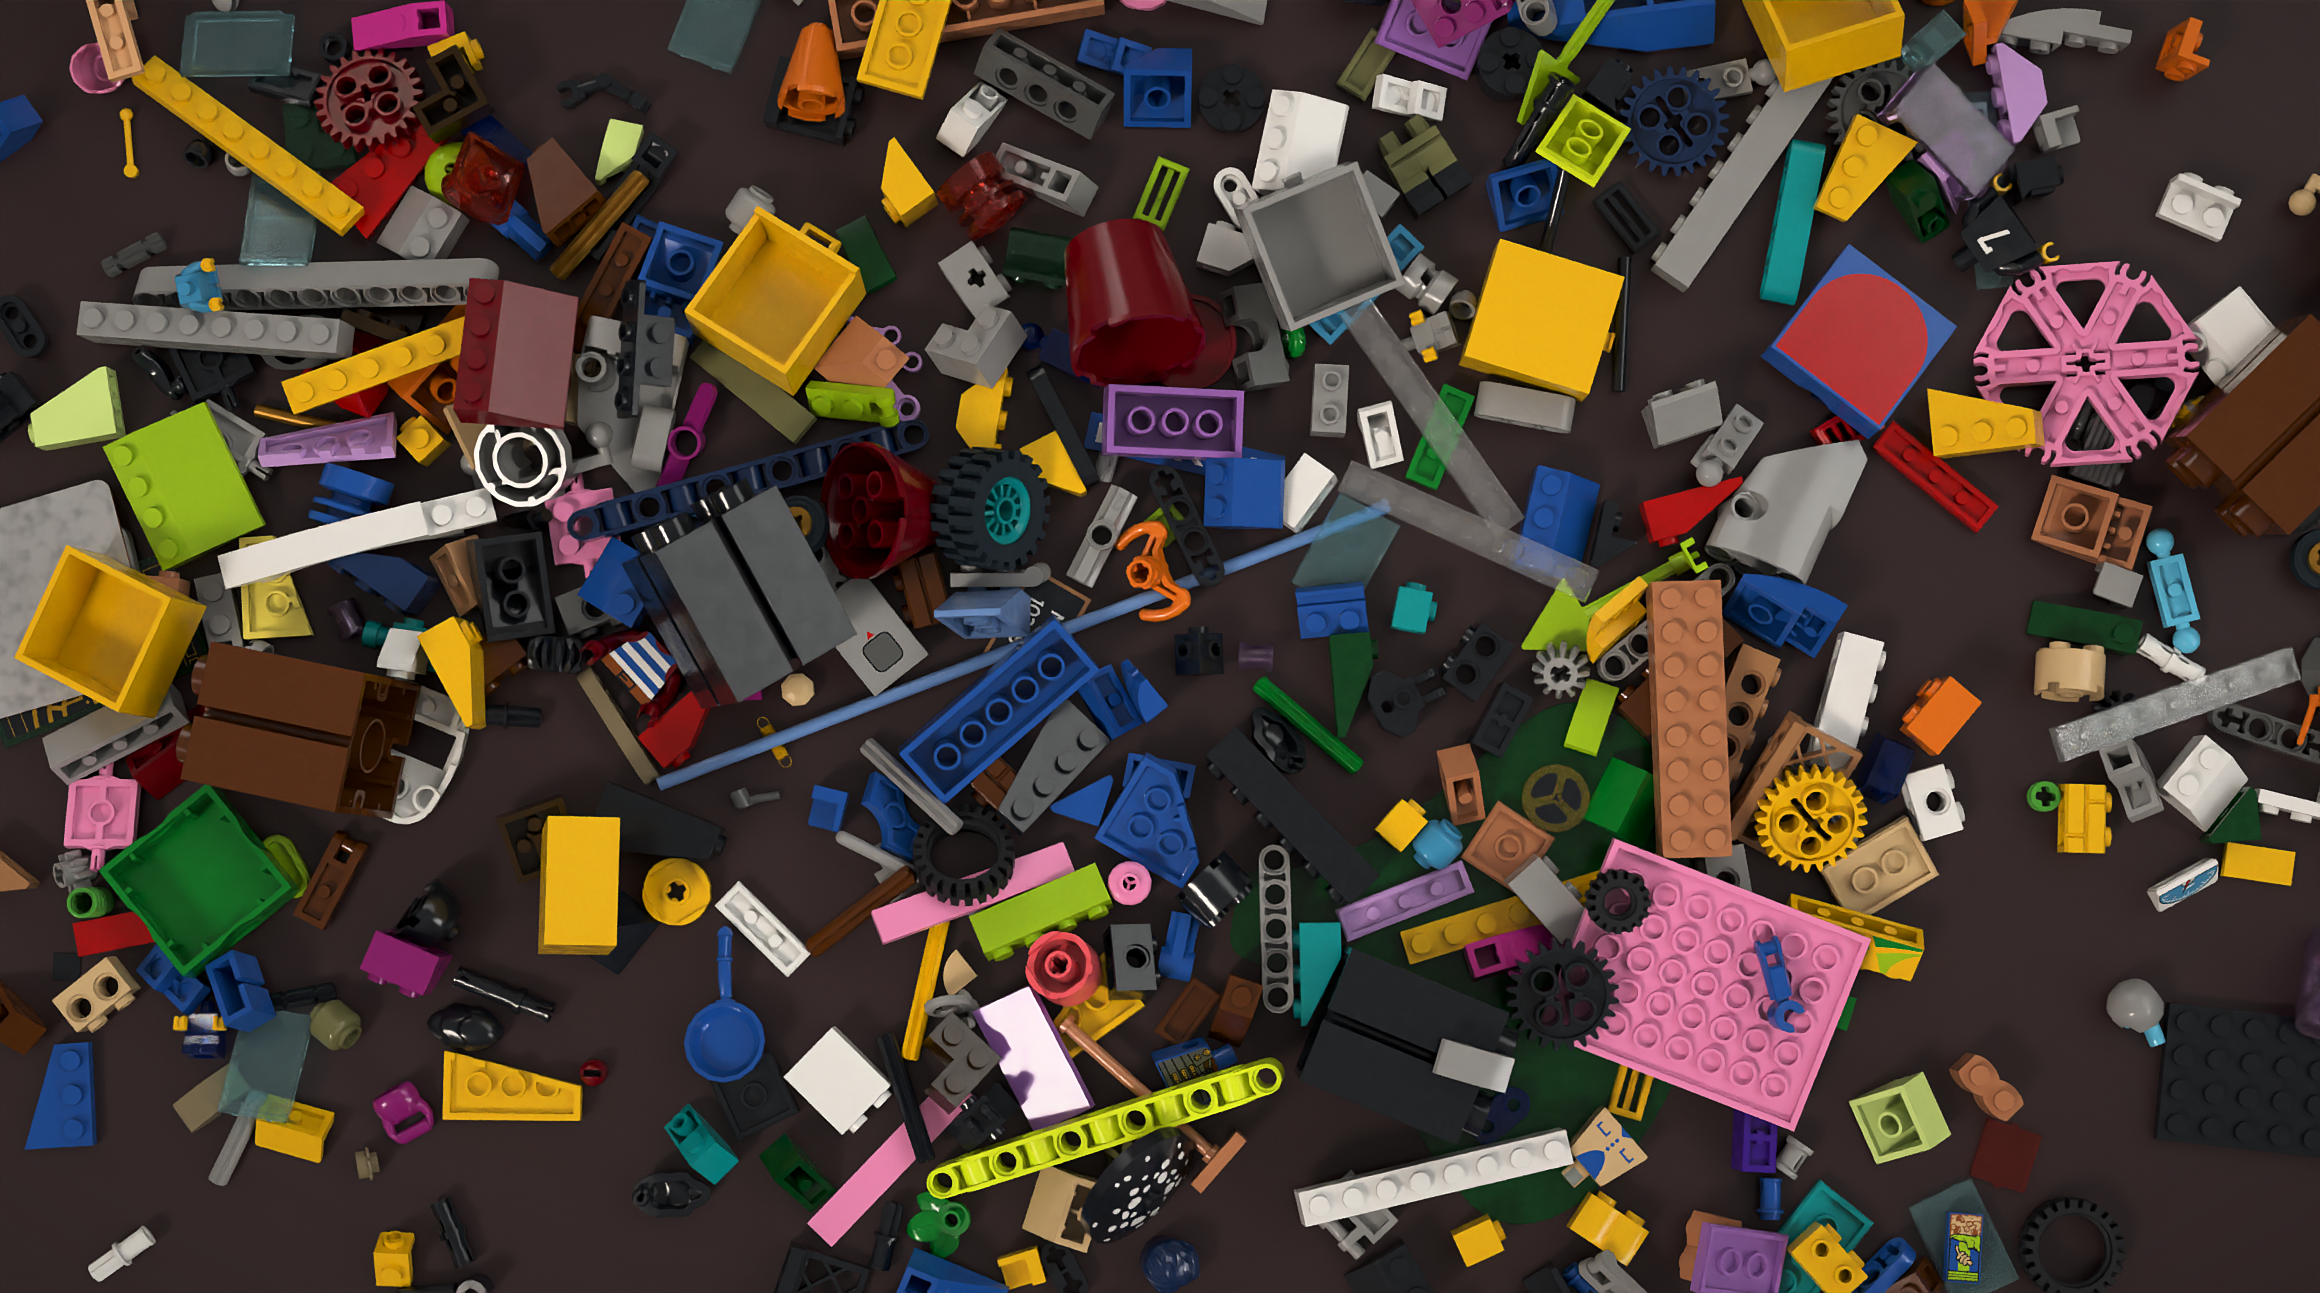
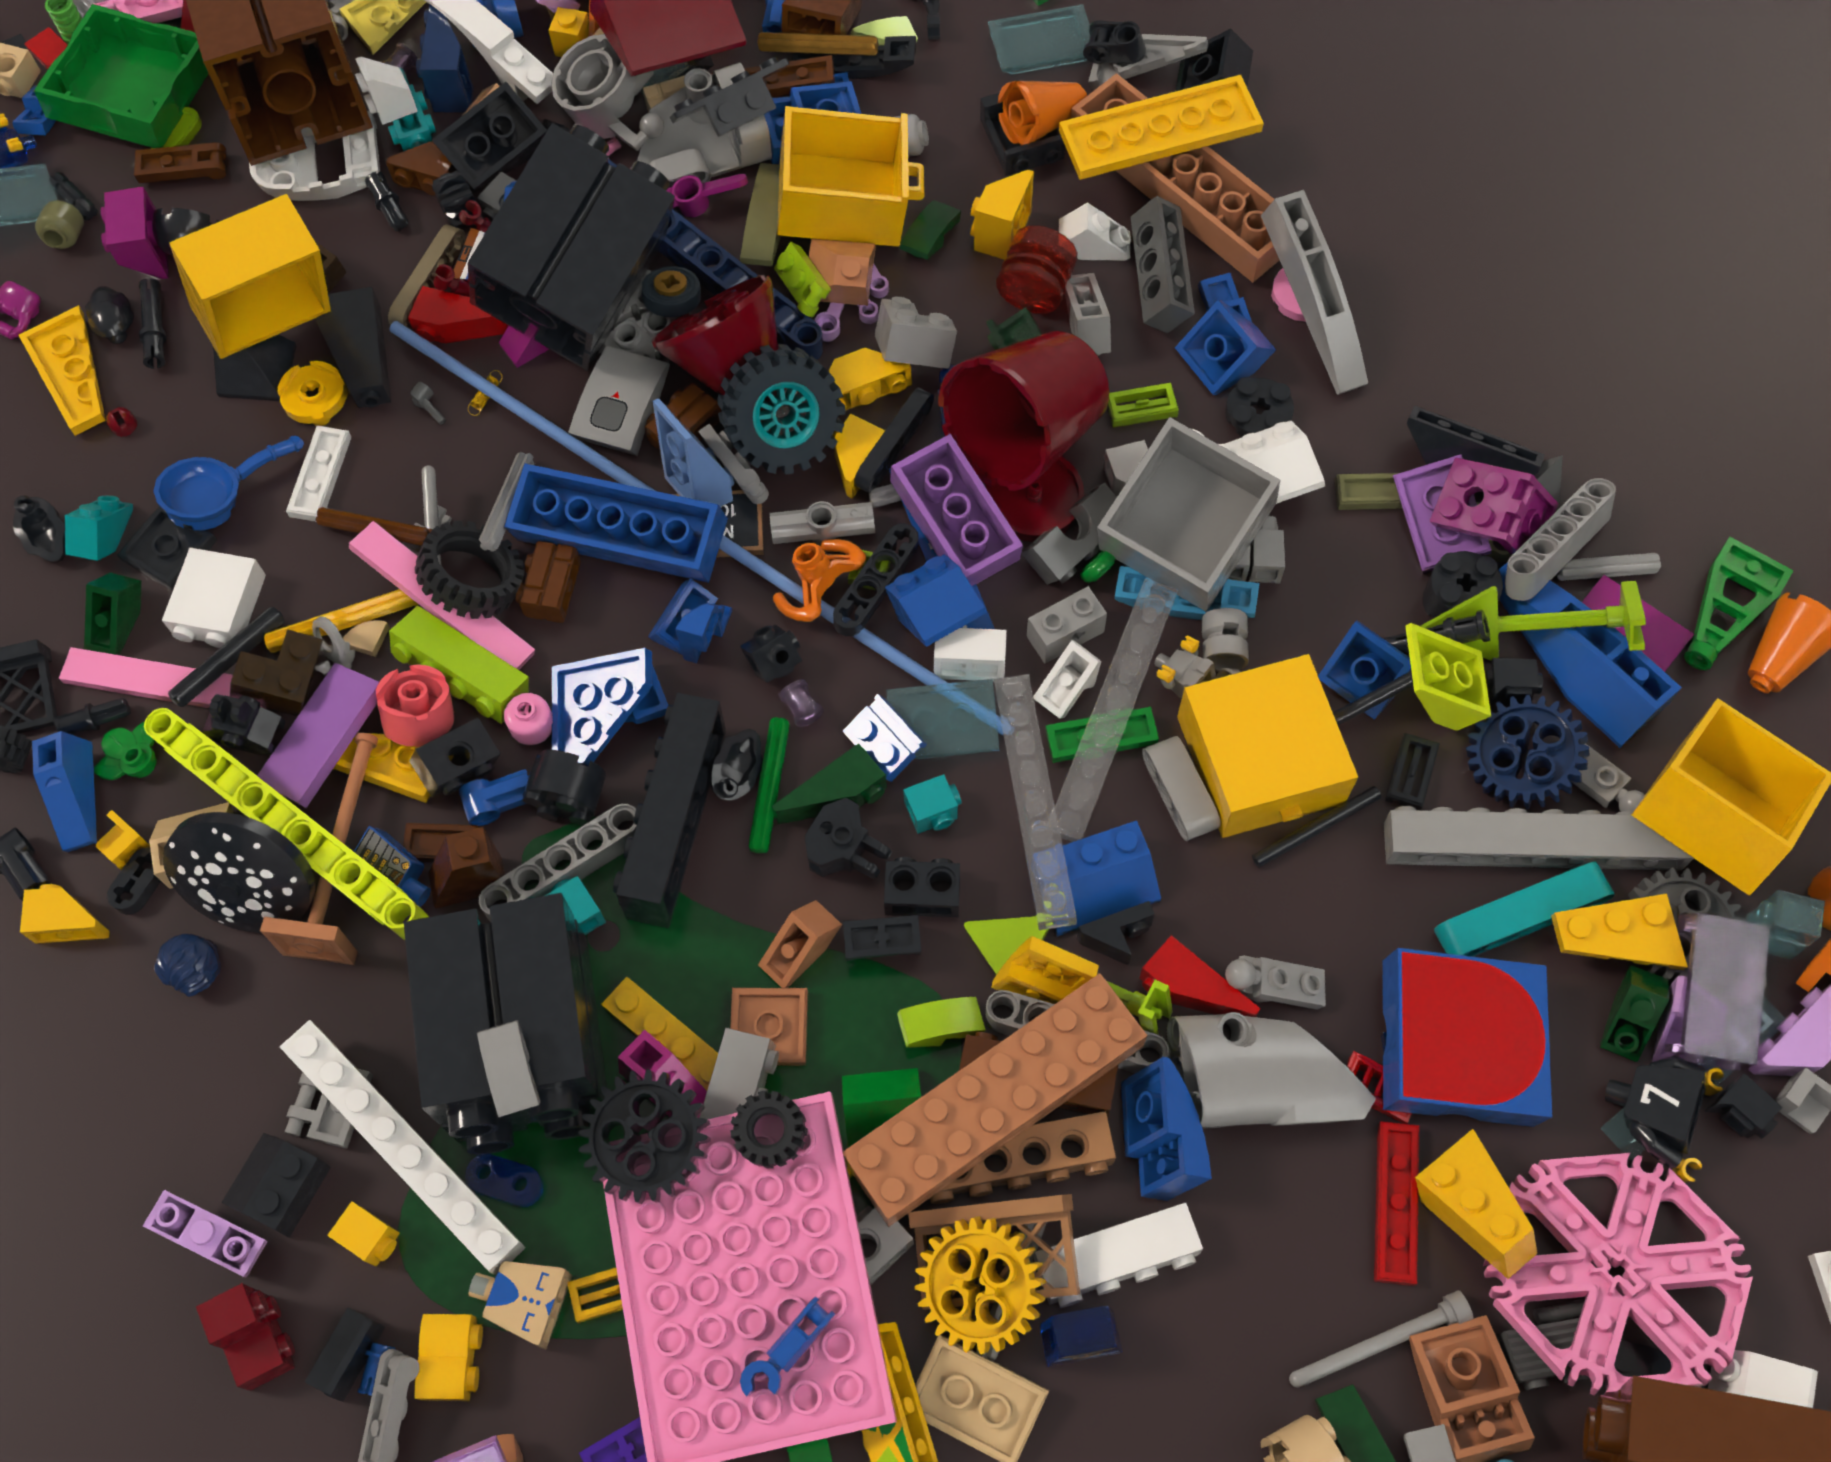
camera: 60 degrees right, 20 degrees down
(238, 992) = (49, 144): blue piece -> none
(459, 663) = (394, 127): yellow slope -> none
(798, 689) = (540, 384): tan tile -> none
(828, 808) = (454, 462): blue panel -> none
(888, 807) = (477, 499): blue tile -> none
(958, 271) = (969, 307): light grey brick -> none
(1056, 758) = (599, 595): black wing -> none
(1086, 804) = (580, 642): blue slope -> none
(1401, 824) = (728, 914): yellow brick -> none
(1404, 901) = (660, 965): lavender tile -> none
(1409, 98) = (1368, 536): white slope -> none
(1419, 160) = (1323, 567): olive hips -> none
(1437, 844) = (730, 957): dark azure head -> none
(1555, 798) = (843, 1039): clear yellow tile -> none
(1557, 658) = (957, 955): light grey gear -> none
(1683, 414) = (1277, 919): light grey slope -> none
(1930, 823) = (1086, 1384): white brick -> none
(1938, 713) = (1169, 1348): orange brick -> none
(2032, 497) = (1450, 1311): none -> light grey piece

